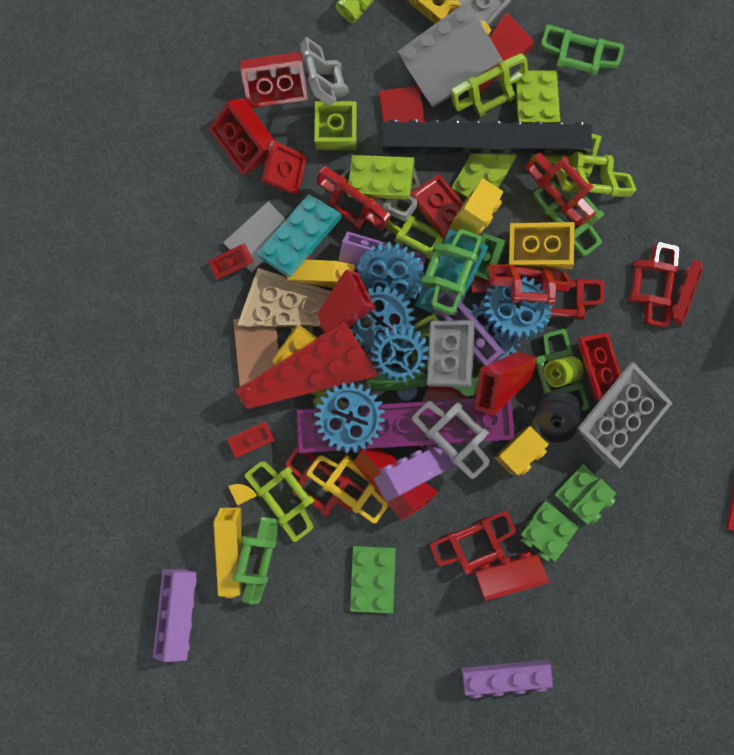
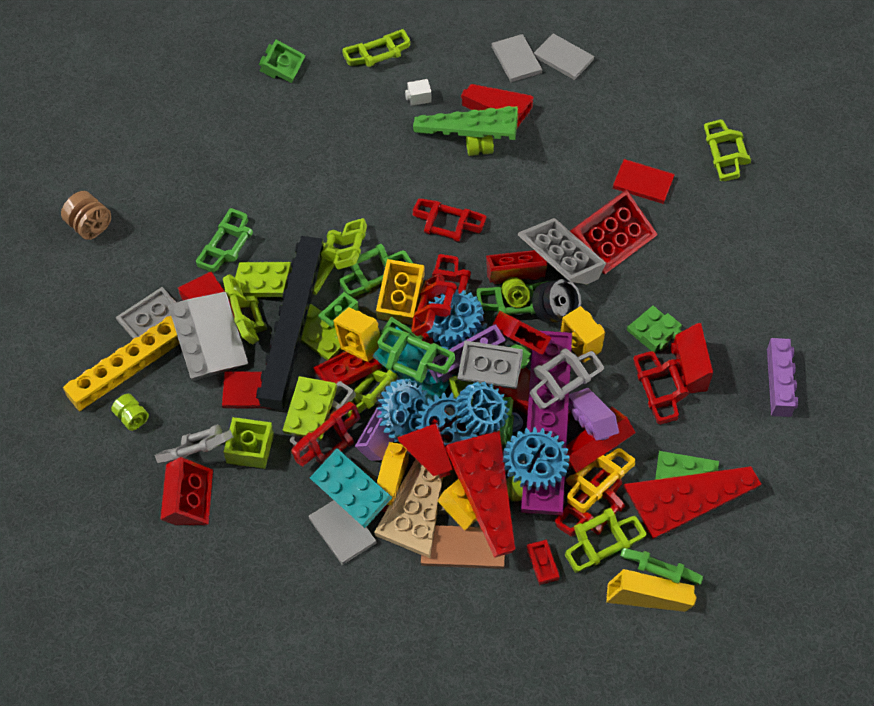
camera: 80 degrees left, 25 degrees down
(174, 615) = (709, 650): medium lavender brick -> none
(231, 261) = (363, 554): red plate -> none
(241, 135) = (238, 529): red slope -> none
(242, 493) = (594, 578): yellow tile -> none
(284, 168) = (280, 493): red tile -> none
(339, 576) = (677, 500): none -> red wing
(510, 185) = (337, 307): none -> bright green slope
(543, 181) = (338, 272): red bar -> none
(585, 495) = (625, 296): bright green plate -> none
(671, 473) = (615, 230): none -> red slope
(687, 292) = (459, 197): red plate -> none

